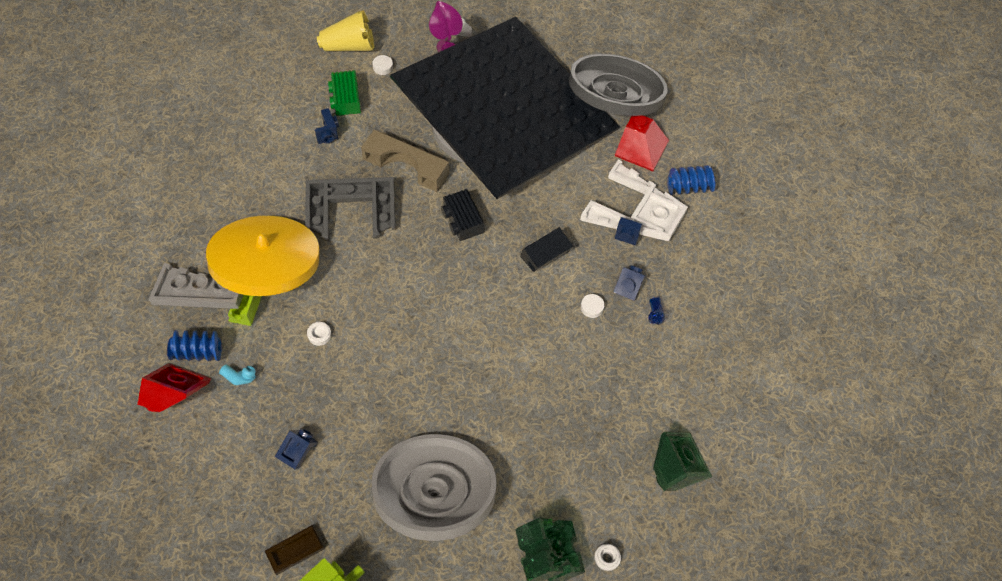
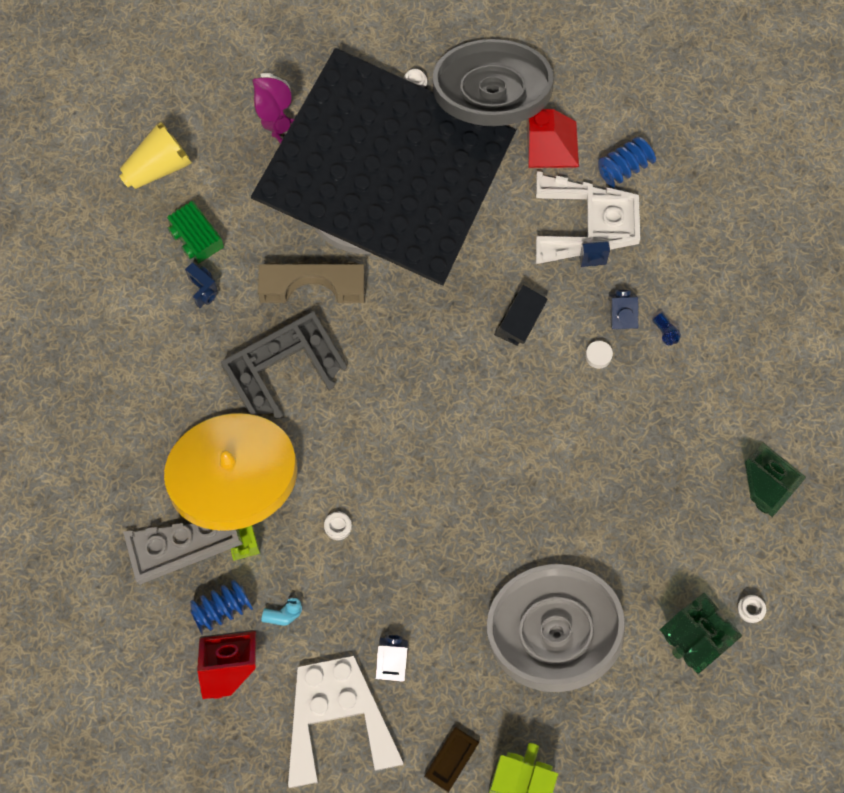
camera: 25 degrees left, 10 degrees up
(233, 450) = (329, 693): none -> white wing
(382, 65) = (213, 175): white tile -> none
(463, 215) = (411, 318): black brick -> none
(565, 61) = (417, 77): none -> white plate

